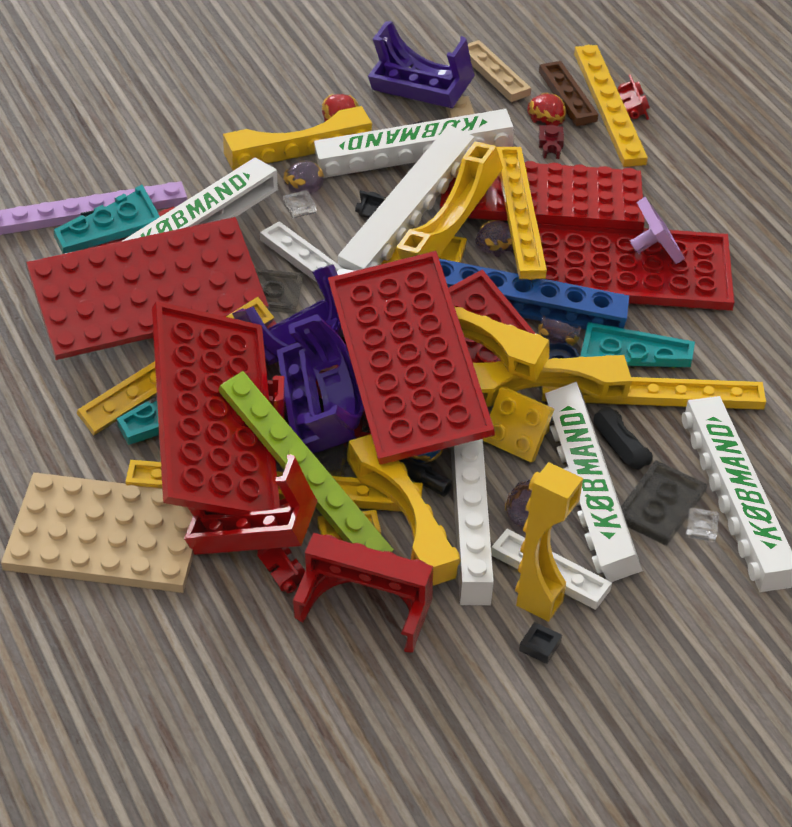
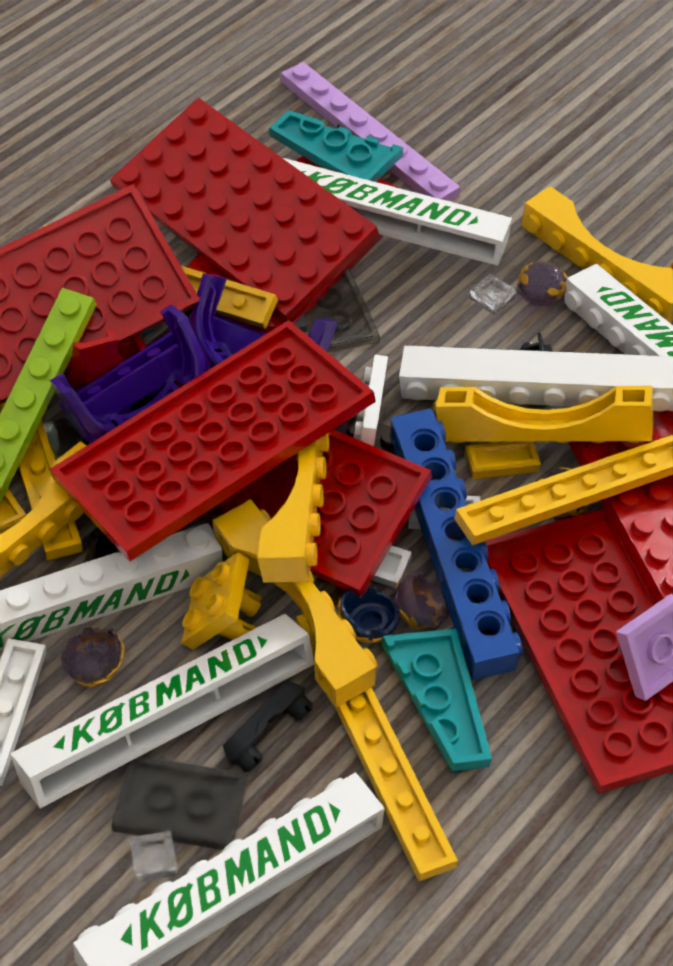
camera: 65 degrees right, 5 degrees up
(295, 249) = (407, 322): white plate -> none

